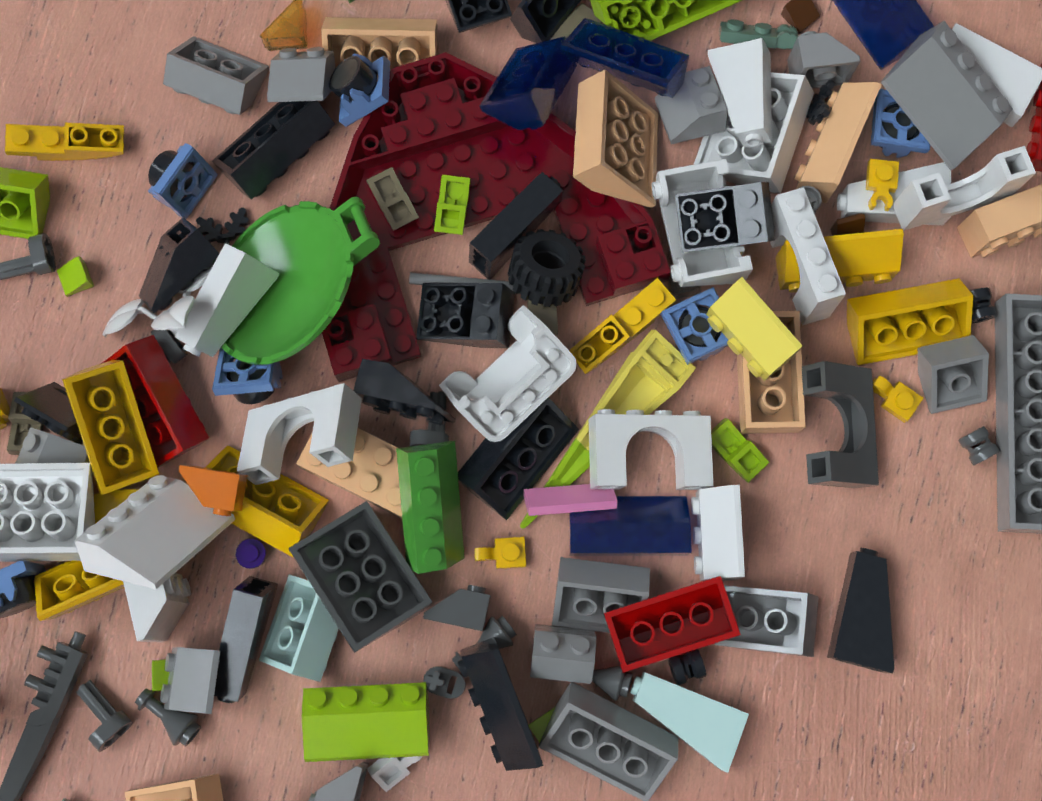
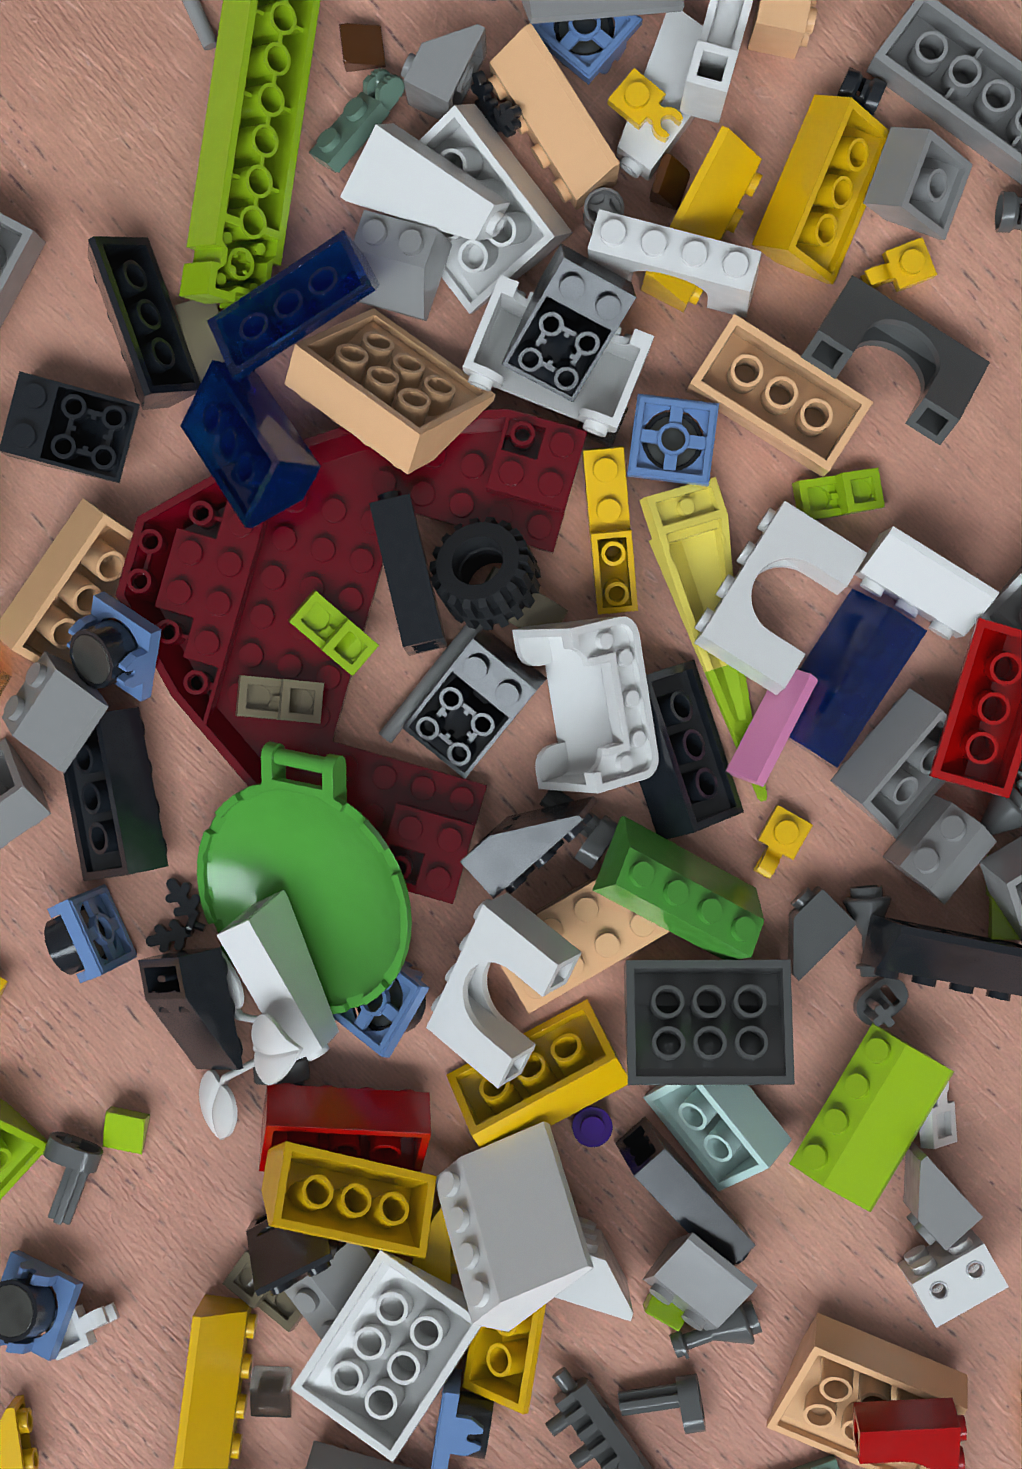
camera: 60 degrees left, 10 degrees up
(216, 488) = (503, 1124): orange slope -> none
(753, 330) = (729, 389): light yellow slope -> none

